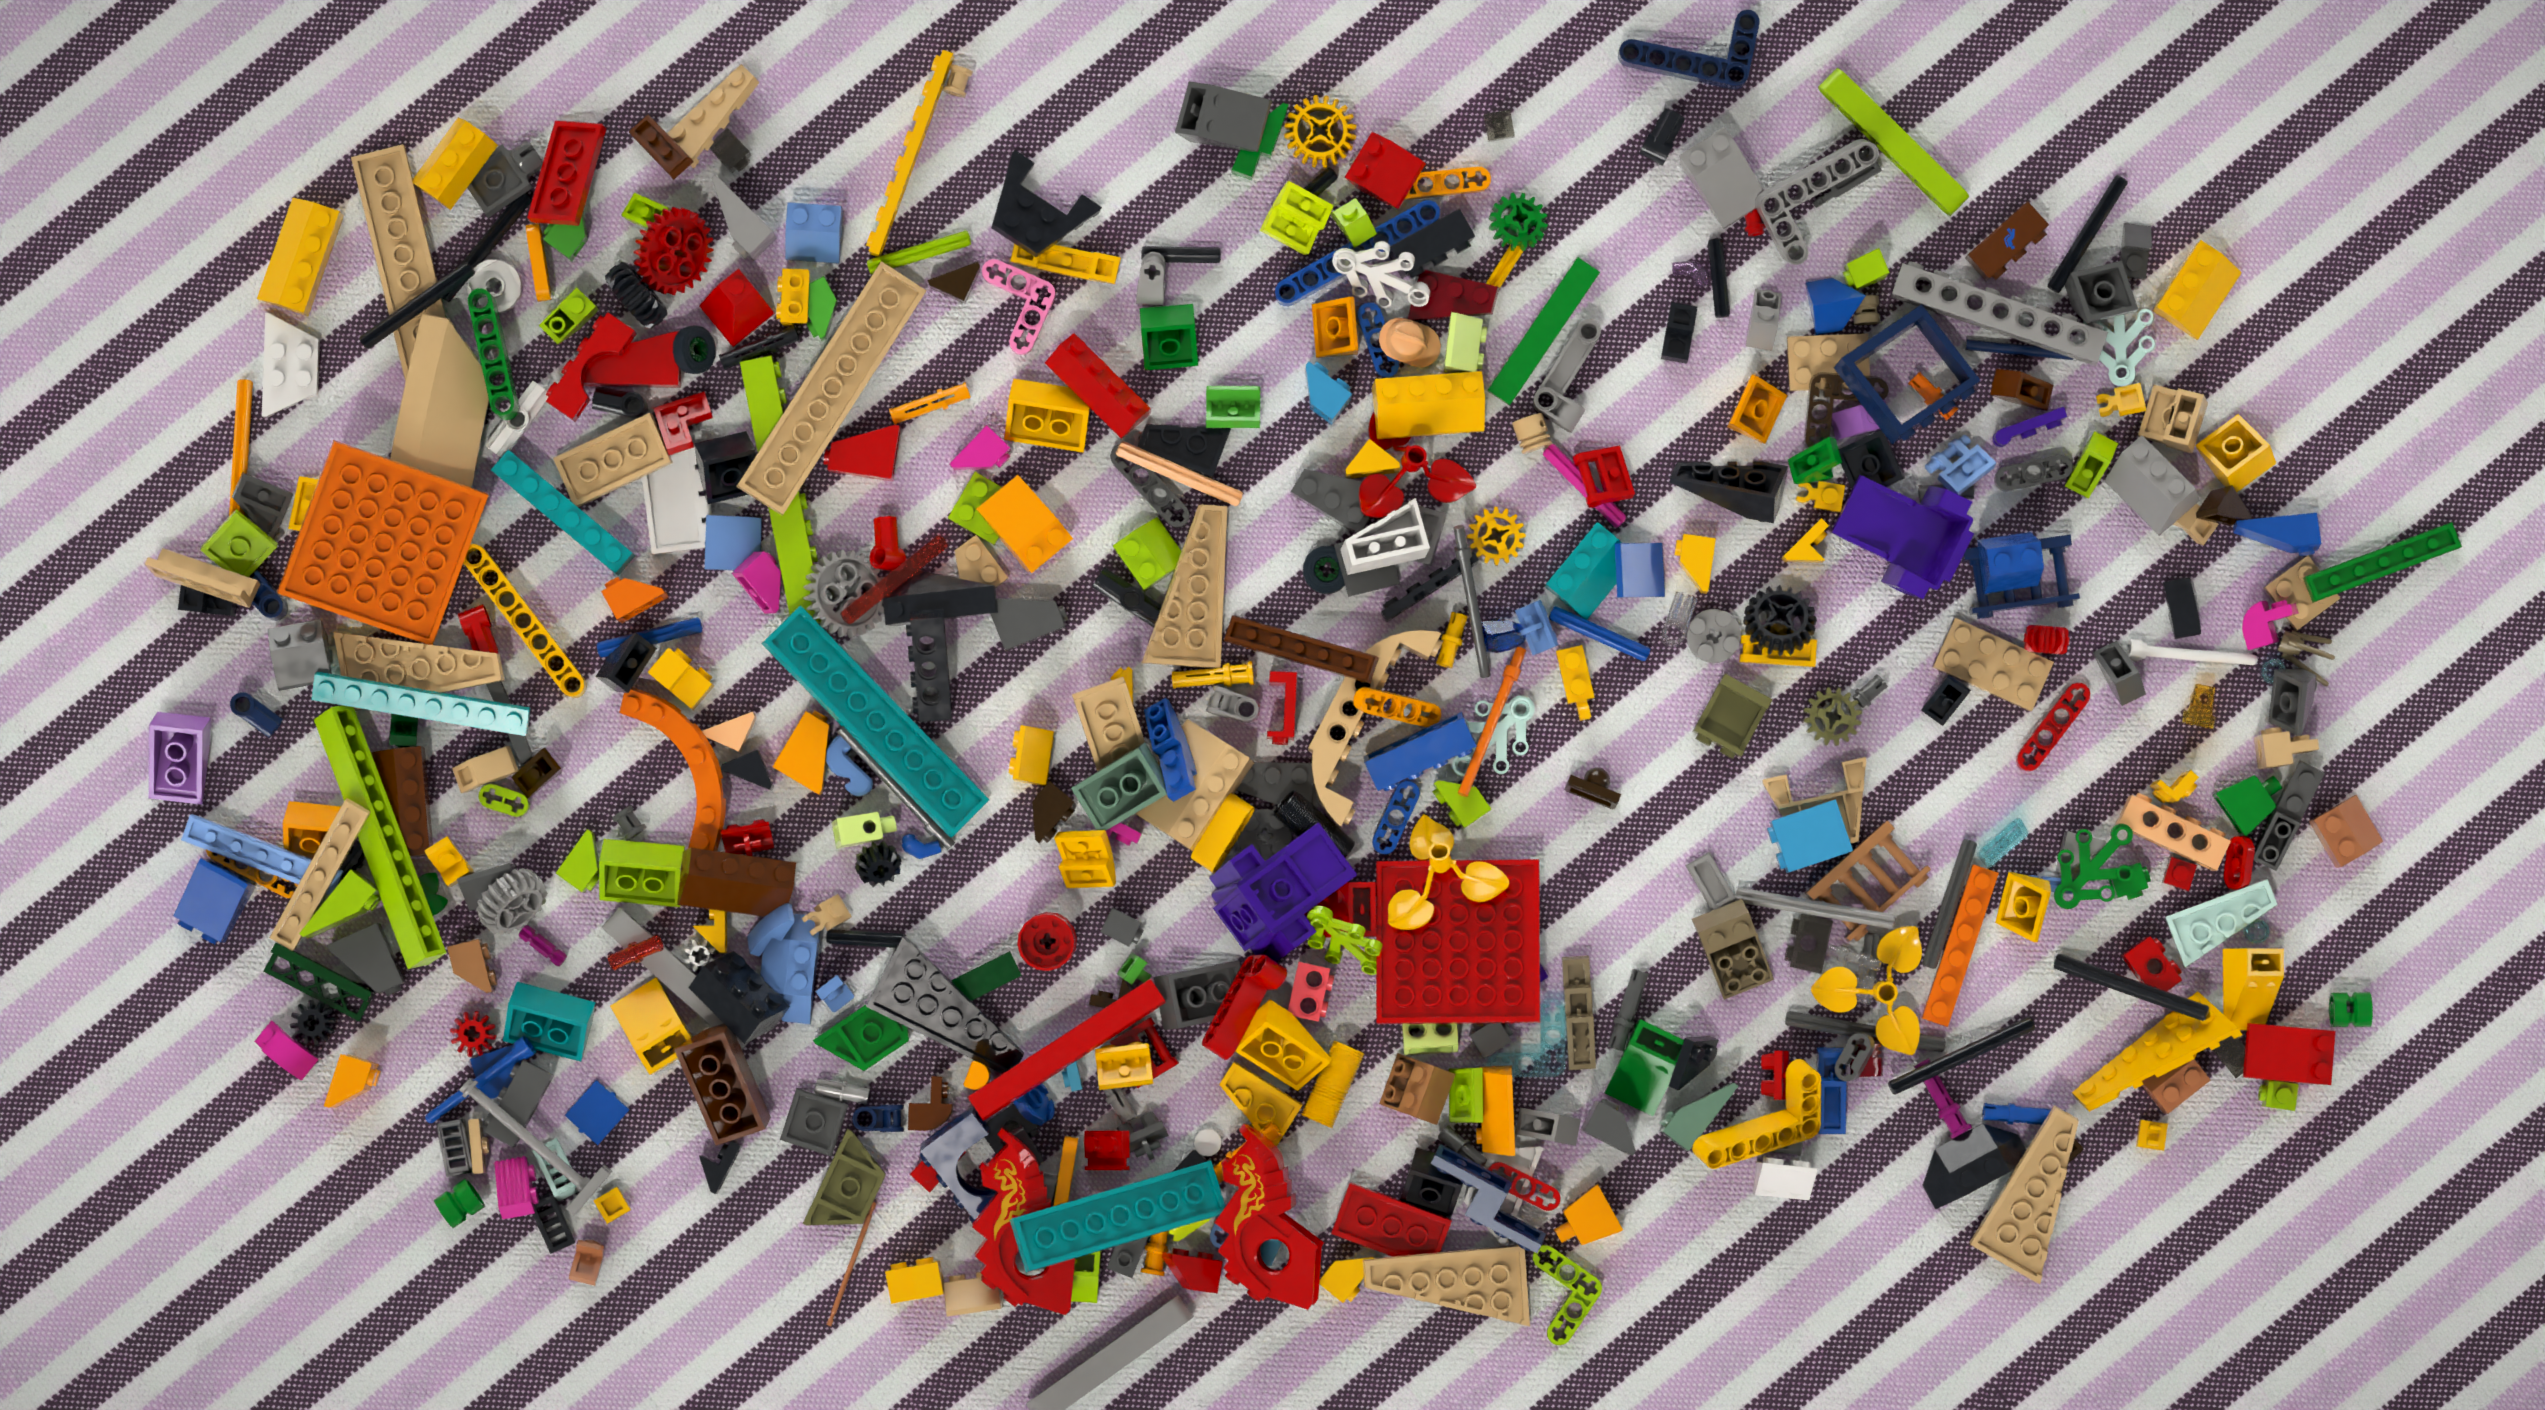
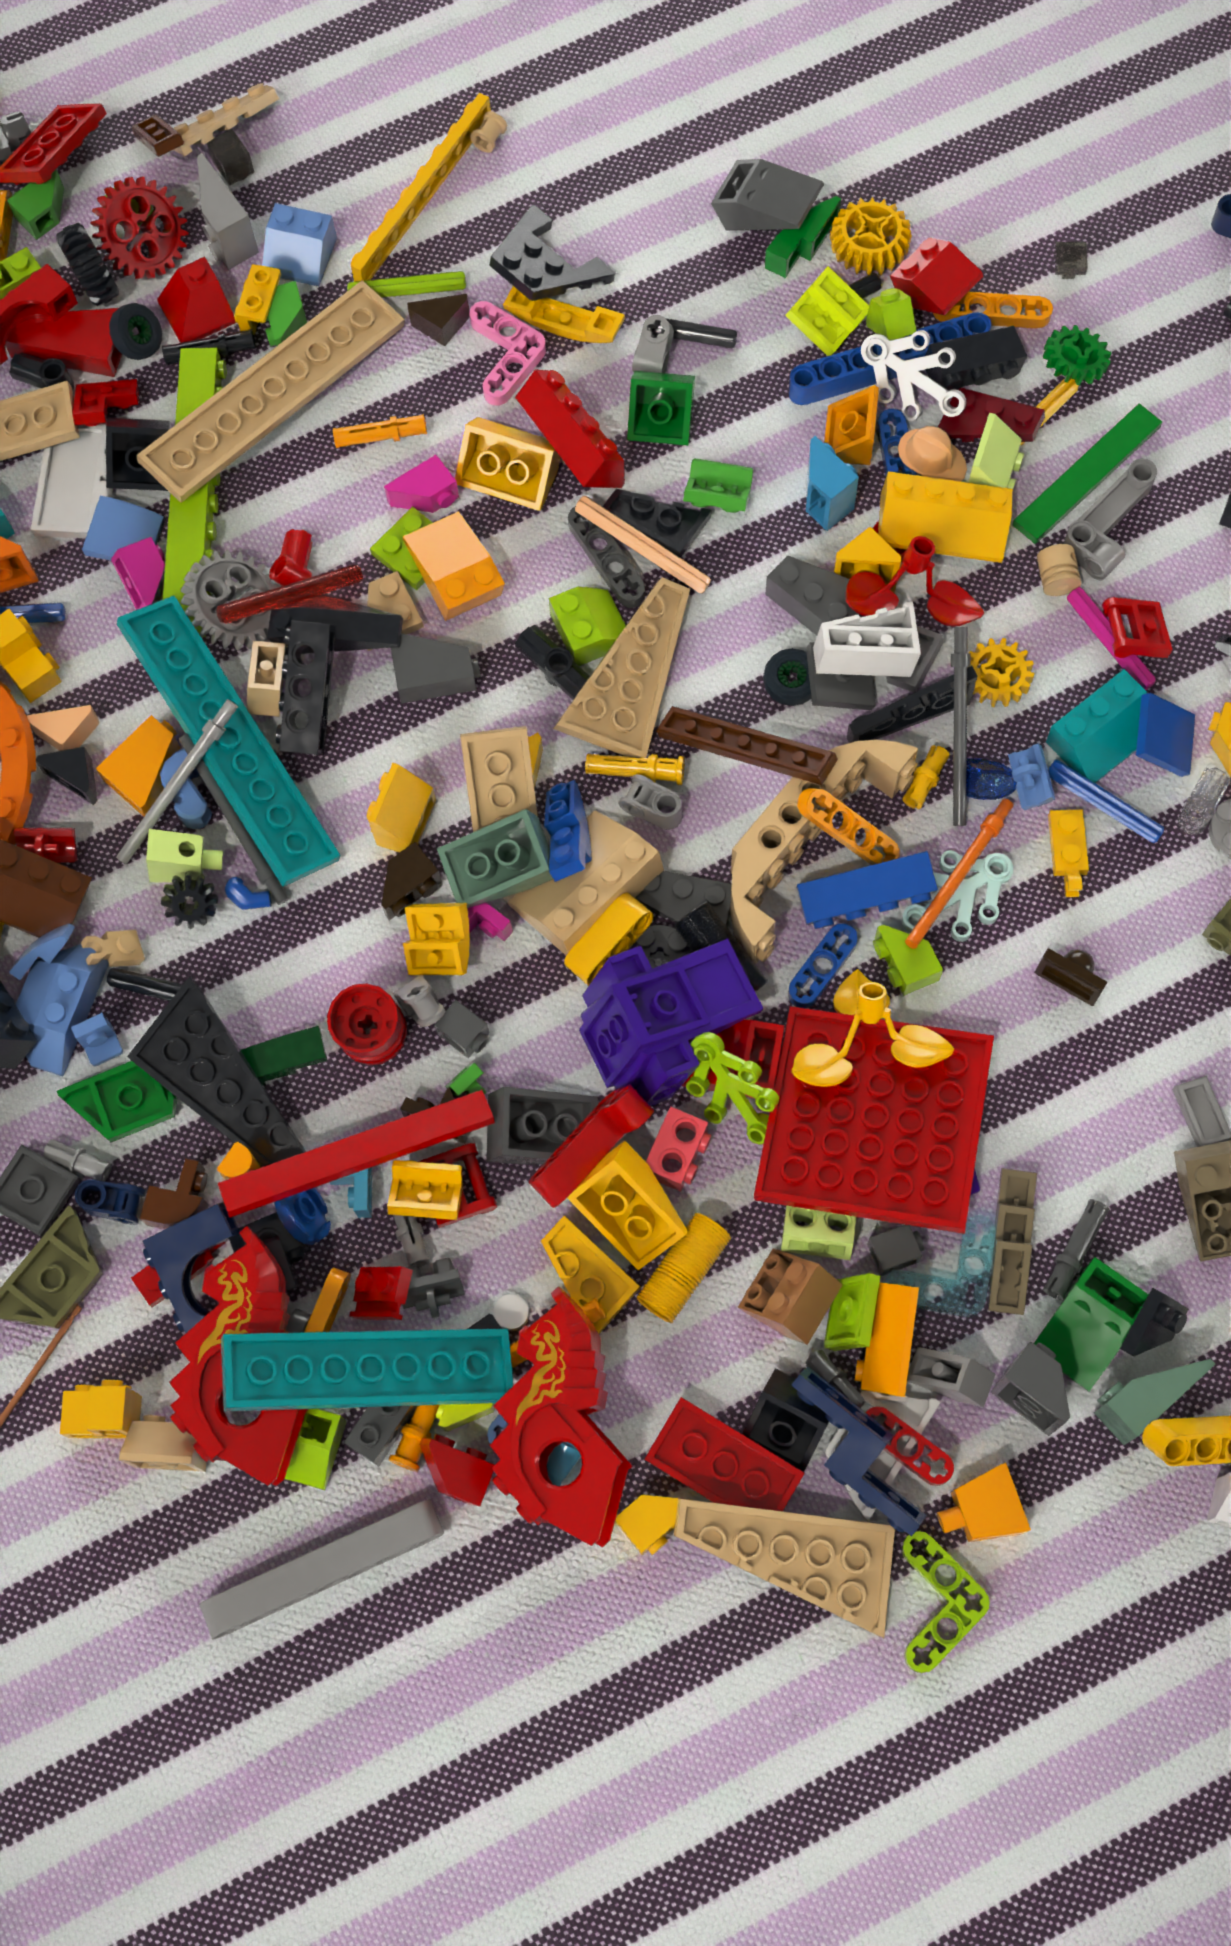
camera: 20 degrees right, 15 degrees down
(866, 454) = (295, 467): red slope -> none
(866, 727) = (212, 731): none -> light grey bar
(893, 660) = (265, 678): none -> tan brick
(1084, 913) = (420, 1002): none -> light grey piece
(1289, 680) = (718, 781): red panel -> none

